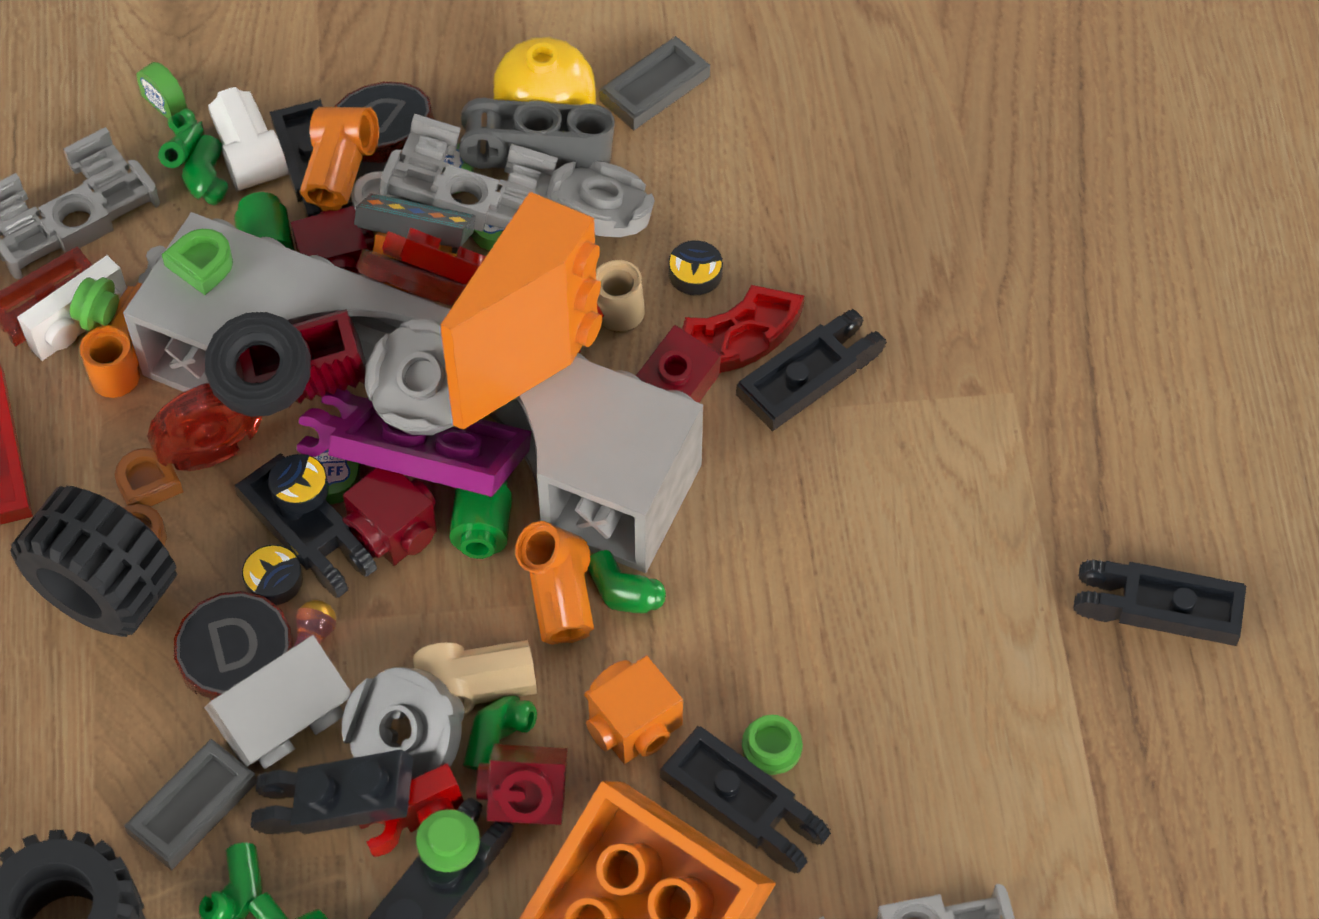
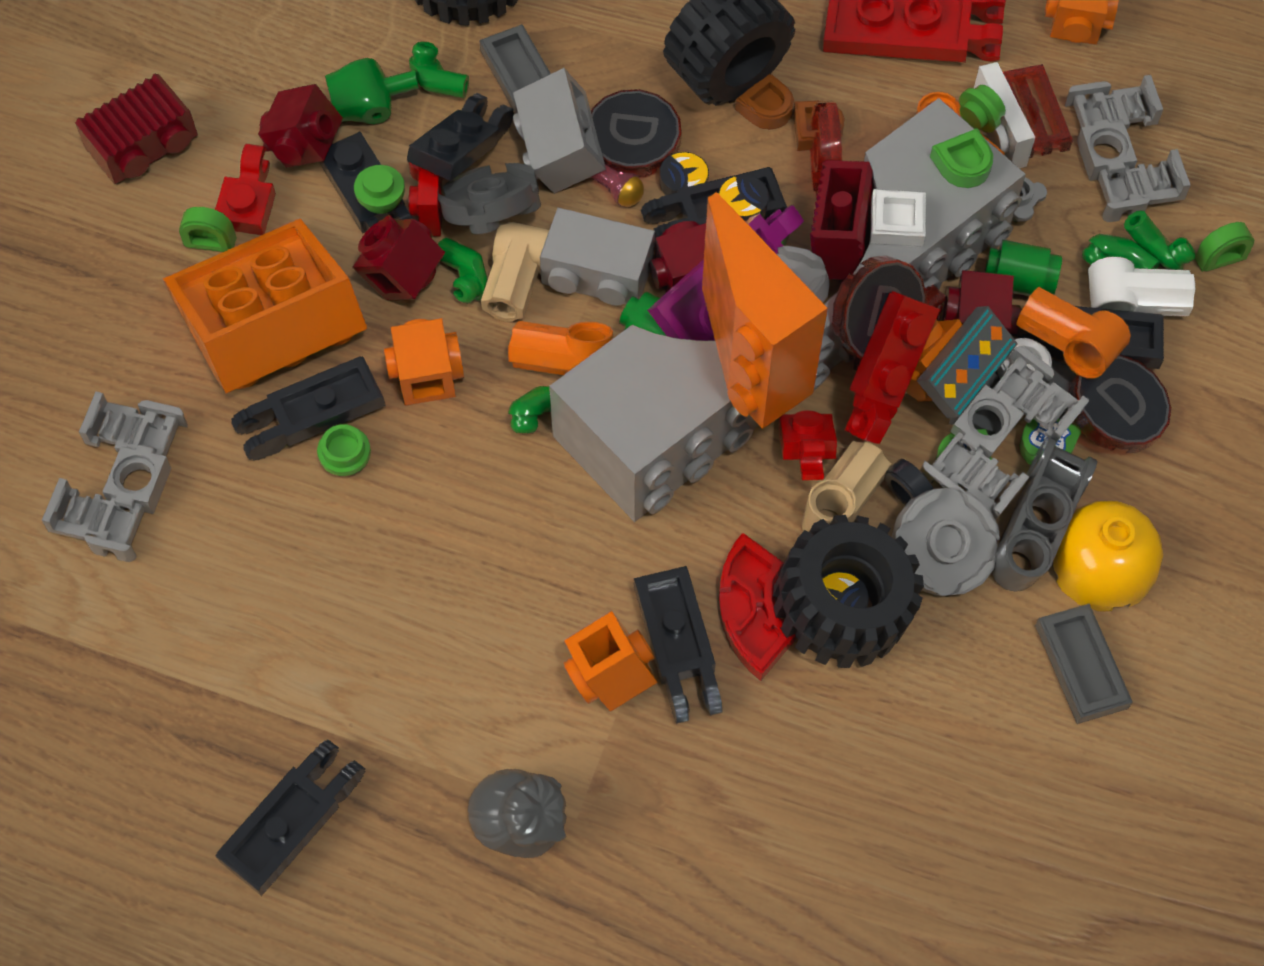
camera: 115 degrees right, 5 degrees up
(246, 332) = (834, 186): black tyre -> none
(301, 289) = (898, 217): none -> white tile
(424, 594) = (596, 257): none -> light grey brick
(682, 365) = (711, 513): dark red brick -> none
(705, 273) = (831, 626): none -> black tyre
(873, 395) = (609, 662): none -> orange brick
(1046, 421) = (518, 813): none -> dark grey hair

